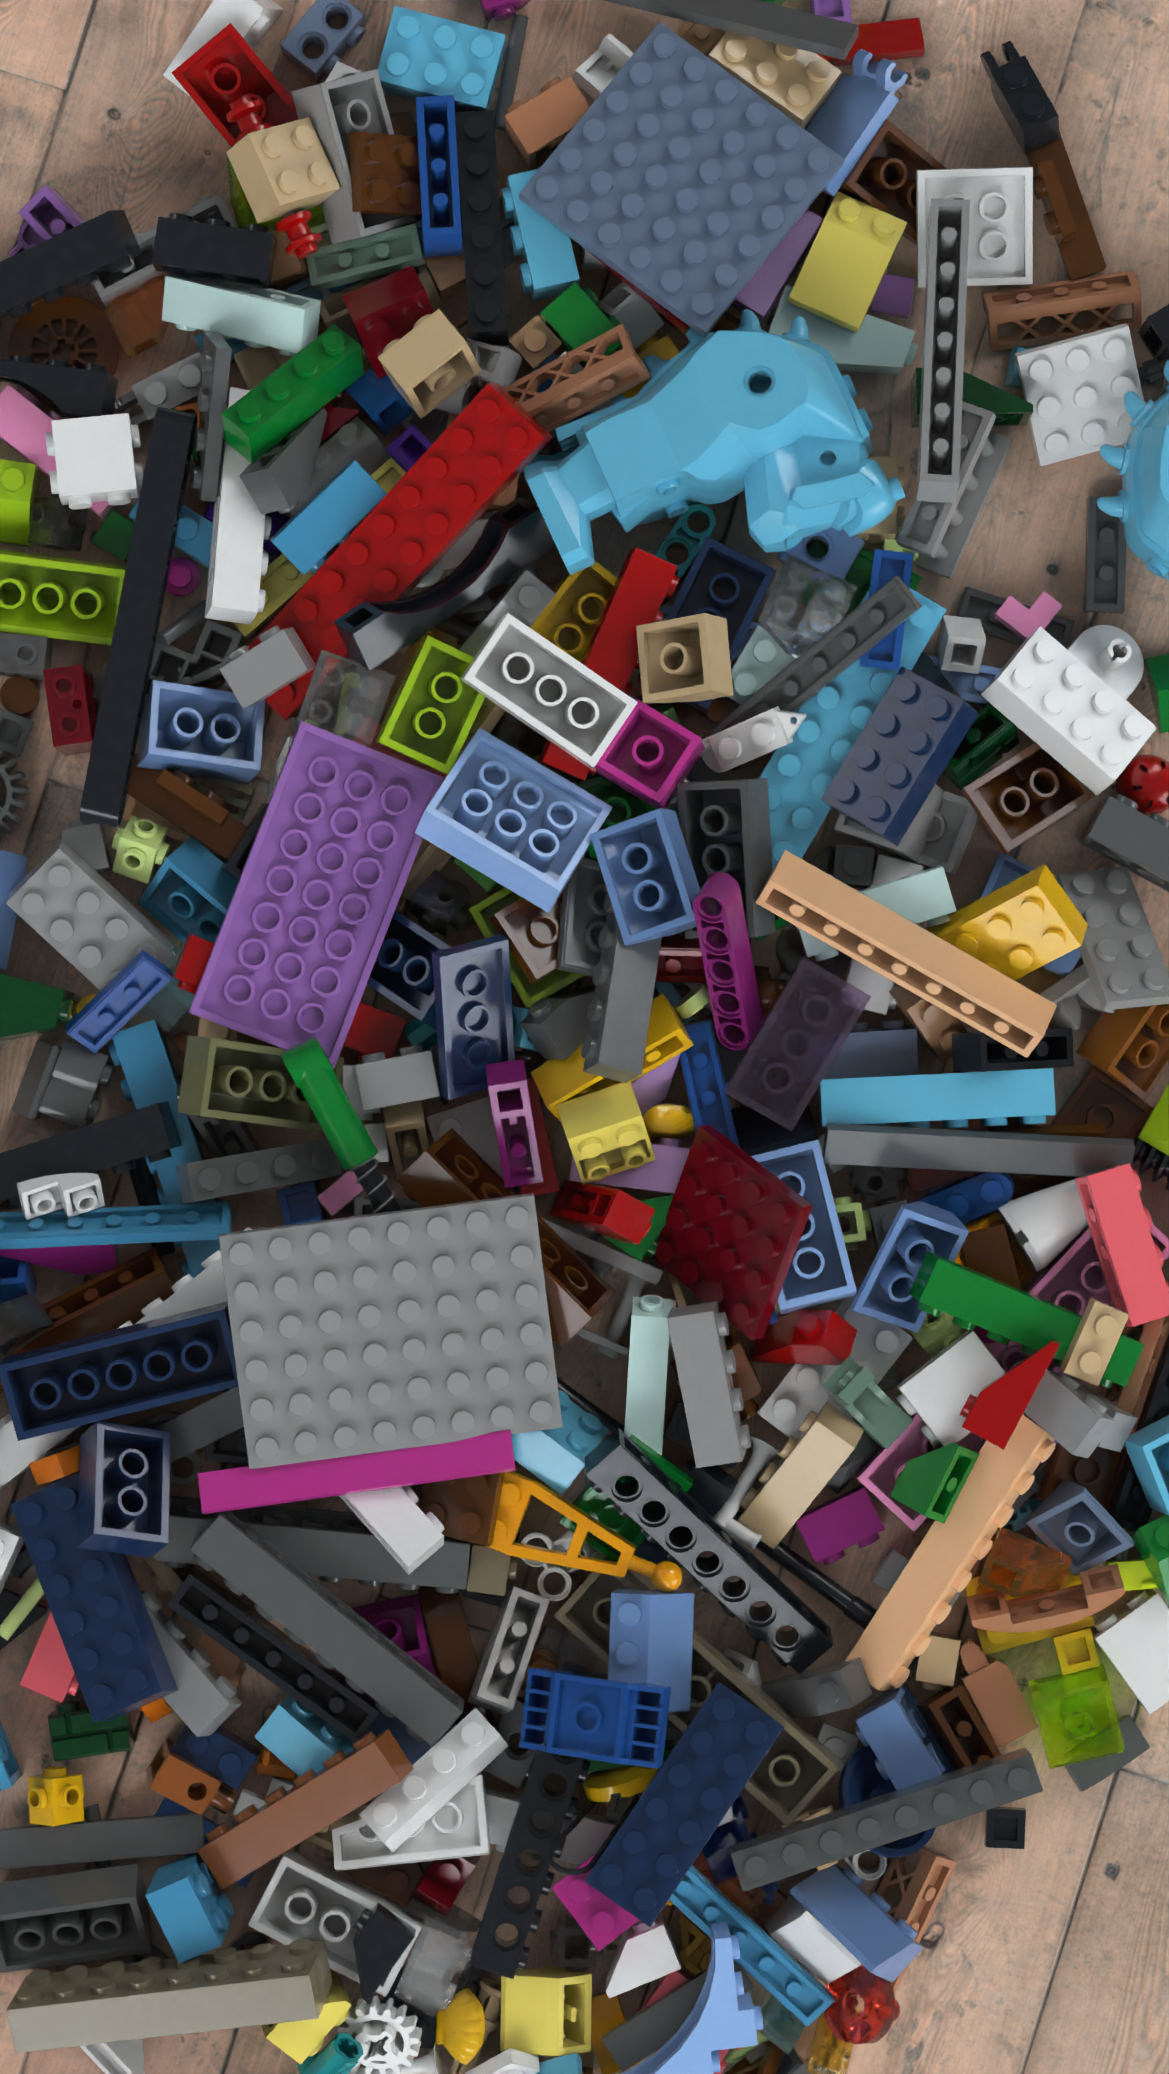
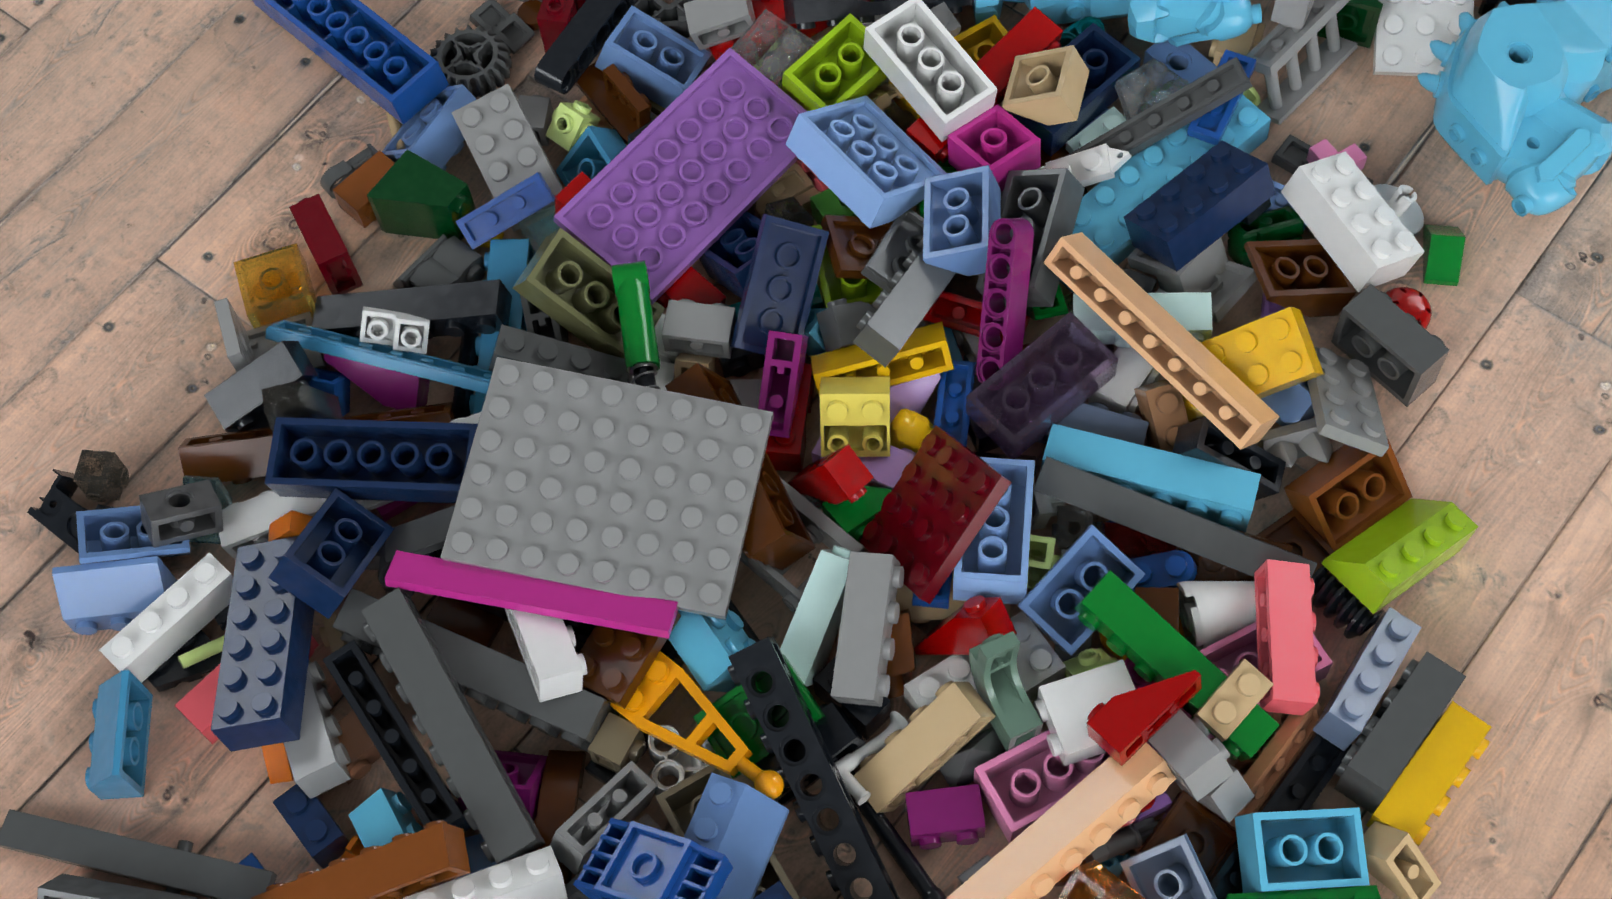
camera: 20 degrees right, 25 degrees down
(55, 1797) = (157, 815): yellow brick -> none
(77, 1736) = (216, 771): dark green brick -> none
(173, 1776) = (267, 831): dark orange torso -> none
(693, 1002) = (964, 343): yellowish green tile -> none
(935, 1480) = (1047, 779): green slope -> none
(960, 644) = (1278, 160): white brick -> none
(1104, 561) = (1411, 144): dark grey plate -> none

